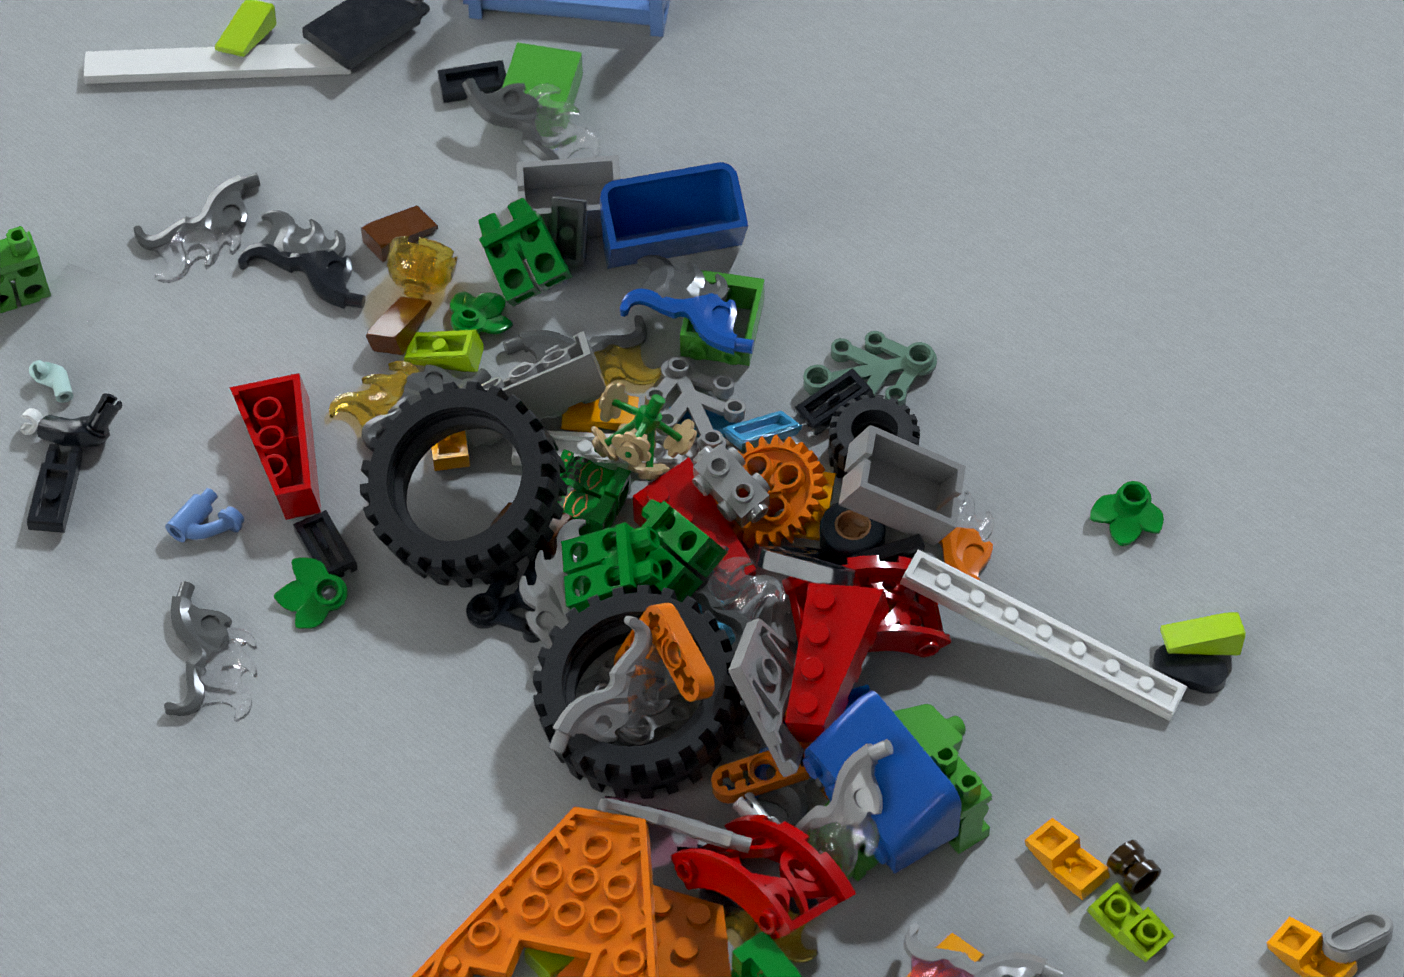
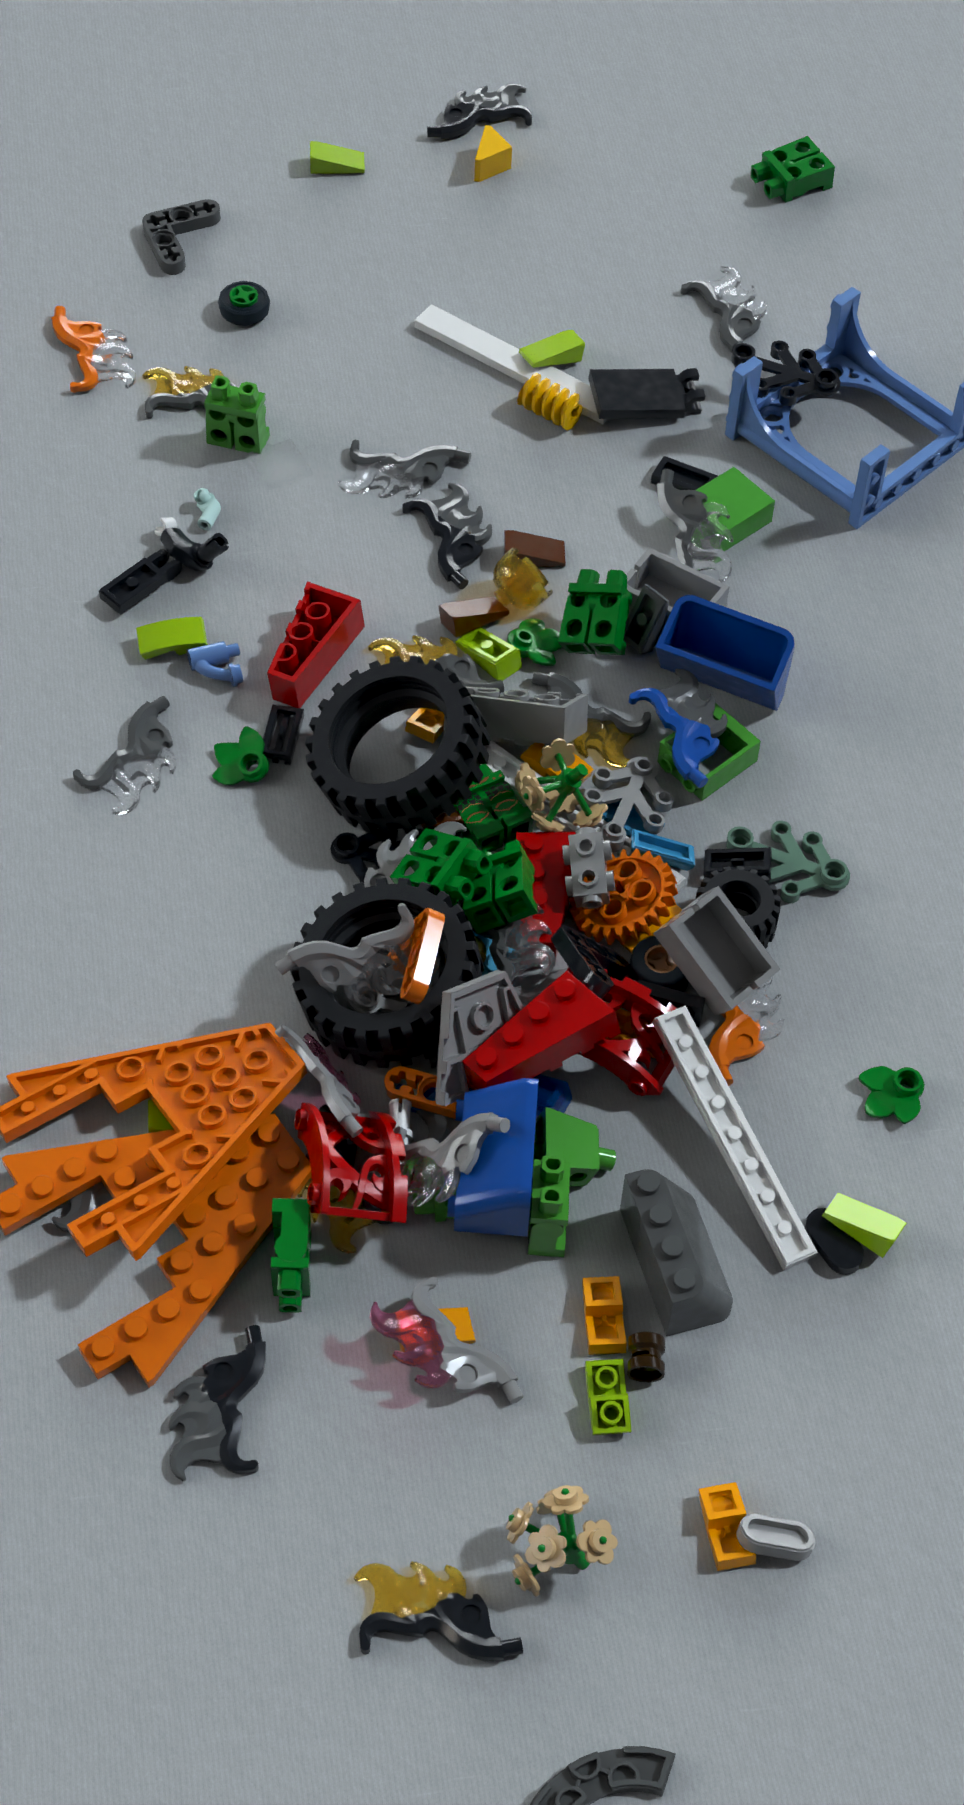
camera: 35 degrees right, 0 degrees up
(137, 520) = (171, 635): none -> lime slope
(289, 79) = (550, 402): none -> yellow piece
(1078, 768) = (674, 1253): none -> dark grey windscreen

